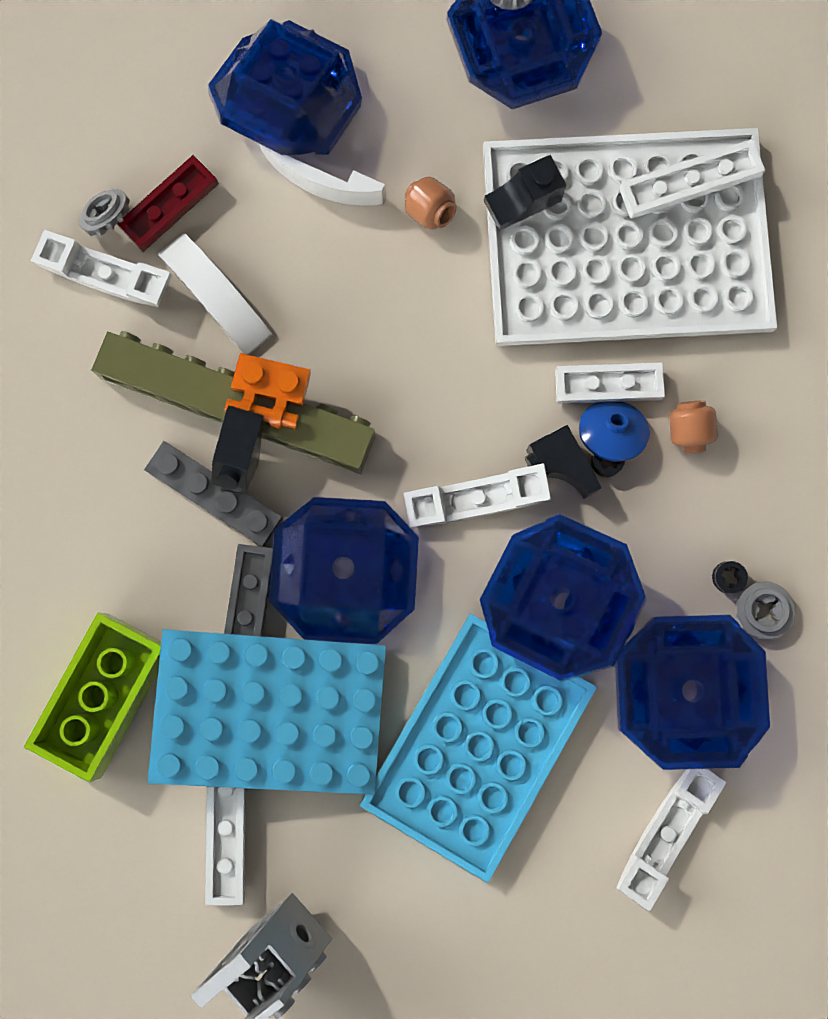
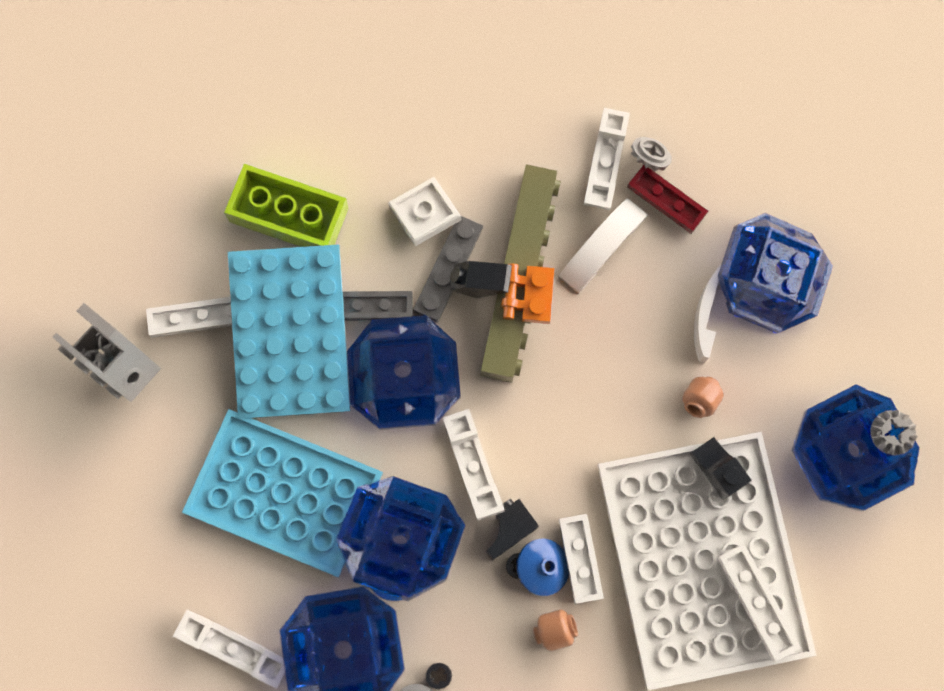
camera: 80 degrees right, 5 degrees down
(131, 513) = (424, 211): none -> white tile

